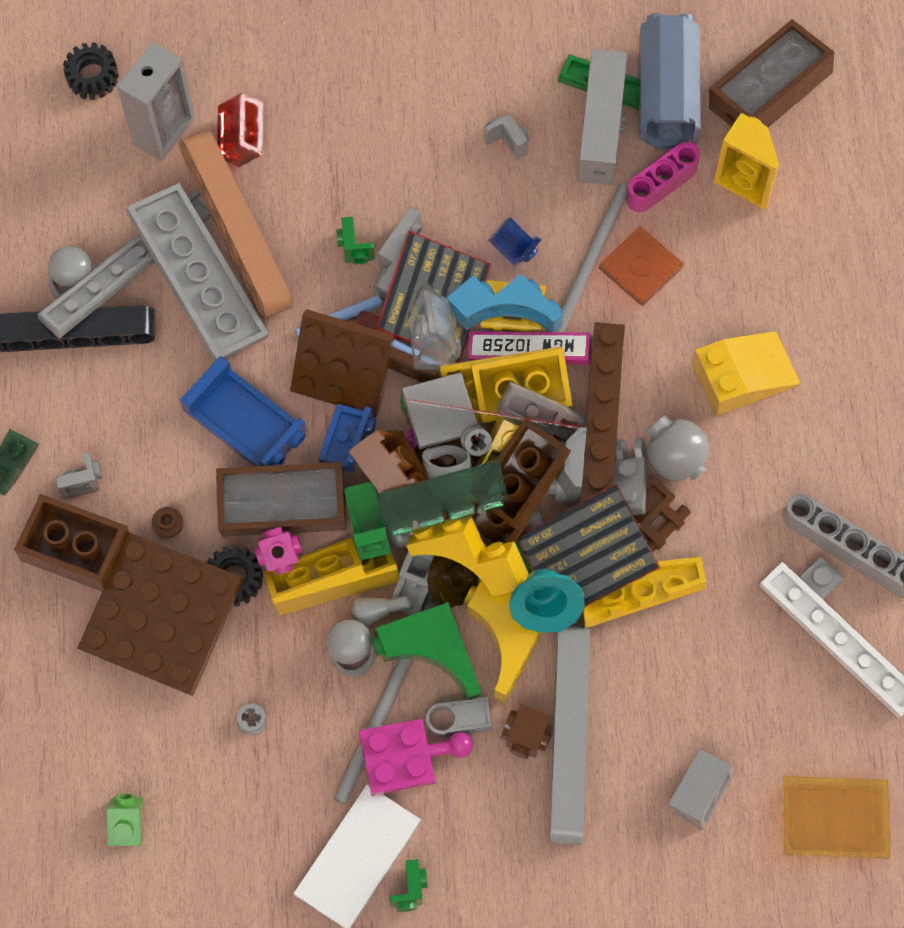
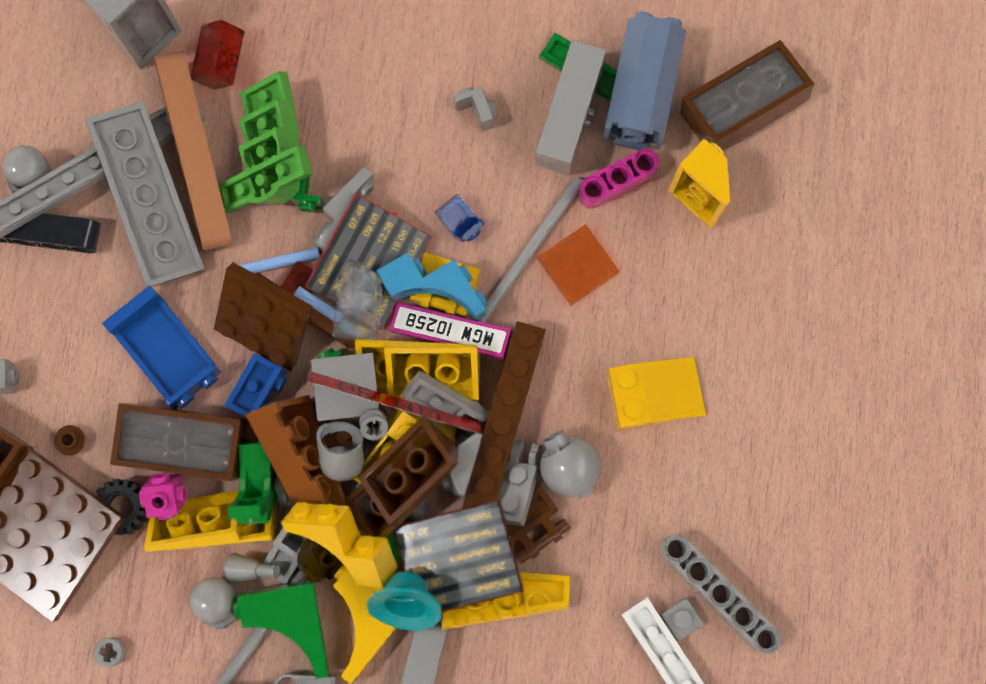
camera: 10 degrees right, 10 degrees up
(312, 206) = (271, 148): none -> bright green slope
(449, 492) = (329, 480): clear green windscreen -> none

